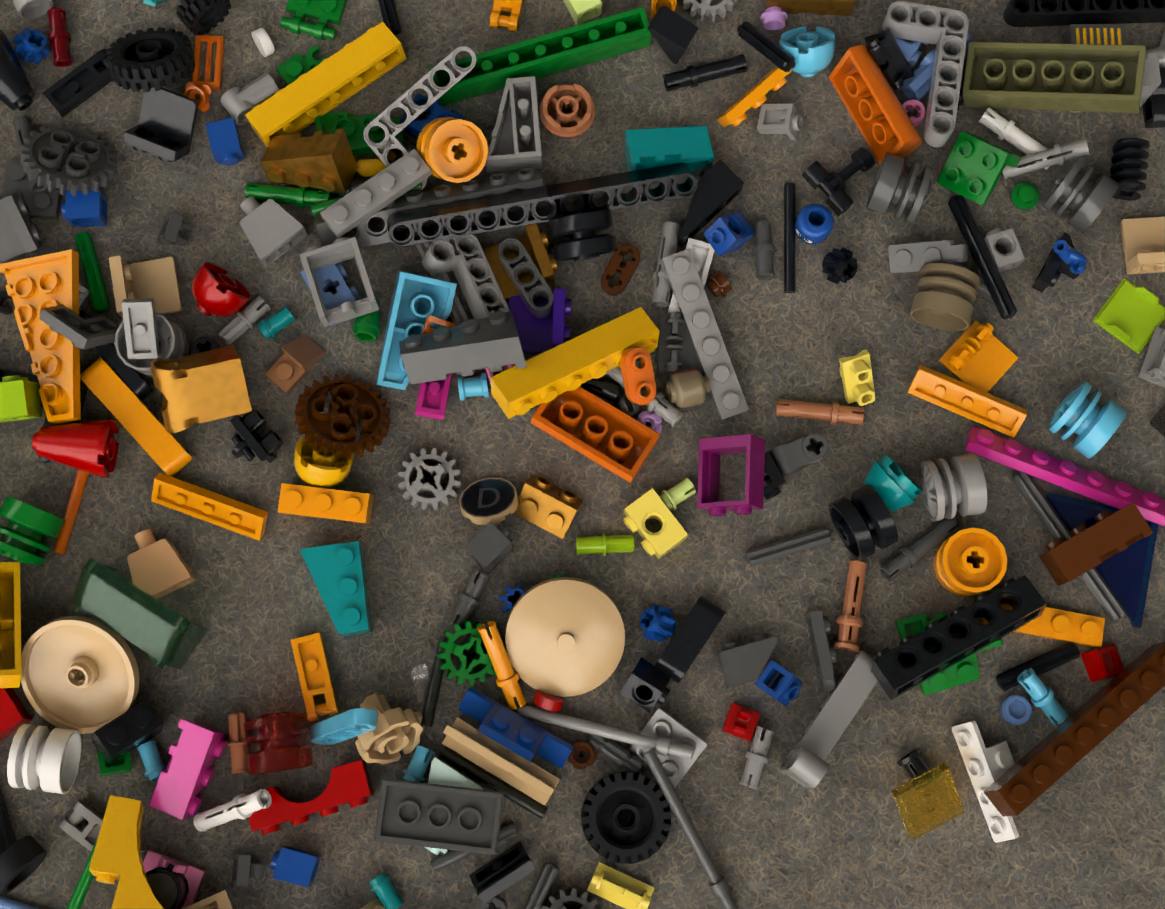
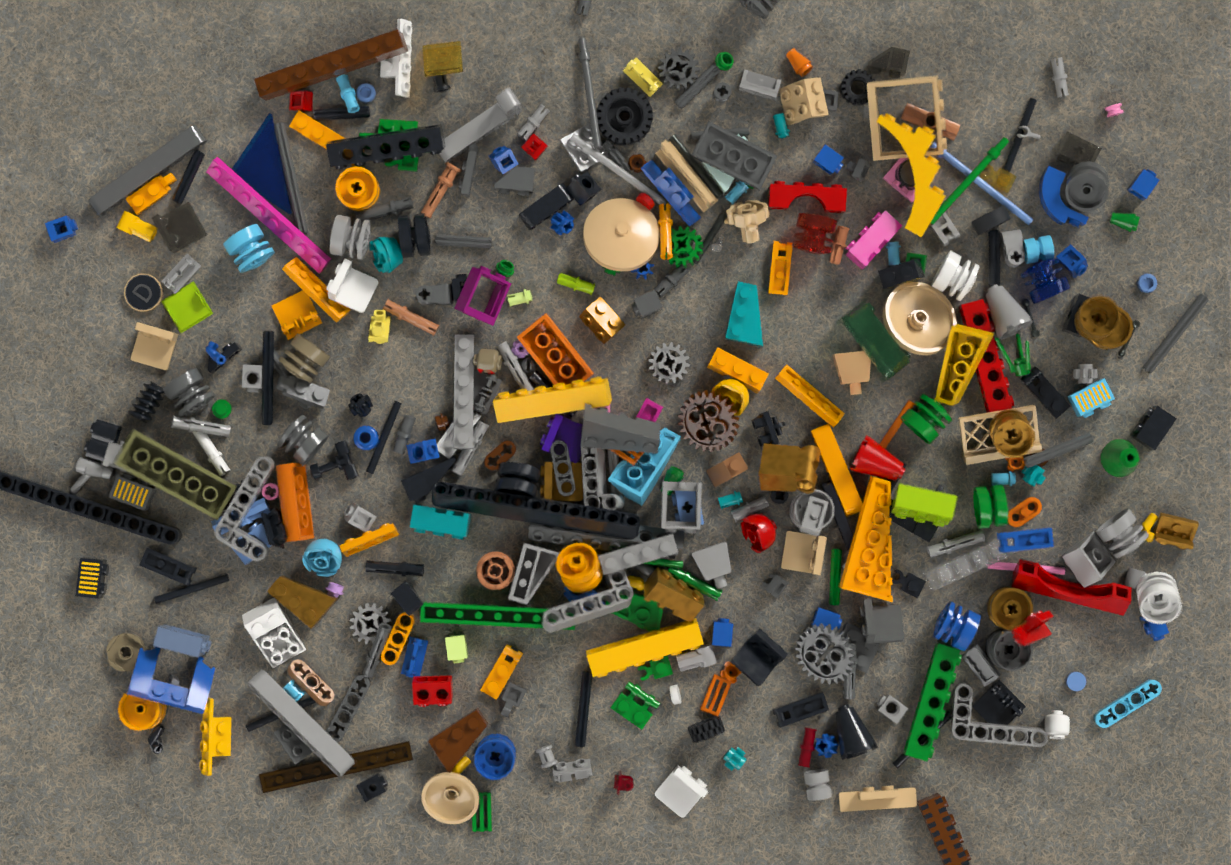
camera: 155 degrees left, 10 degrees up
(81, 332) = (850, 527): dark grey plate -> none
(151, 59) = (751, 703): black wheel -> none
(240, 807) = (838, 202): white pin -> none
(344, 726) = (771, 226): medium azure beam -> none
(473, 386) = (621, 409): medium azure bush -> none
(488, 501) = (637, 335): tile -> none
(502, 872) = (709, 110): black plate -> none
(637, 377) = (516, 376): orange plate -> none
(652, 507) = (538, 272): light yellow brick -> none
(714, 527) = (505, 268): none -> green plate
(766, 46) = (349, 568): black axle -> none
(920, 420) = (351, 287): none -> white bracket
(975, 167) = (246, 438): green bracket -> none
(1094, 543) = (280, 170): reddish brown wedge -> none

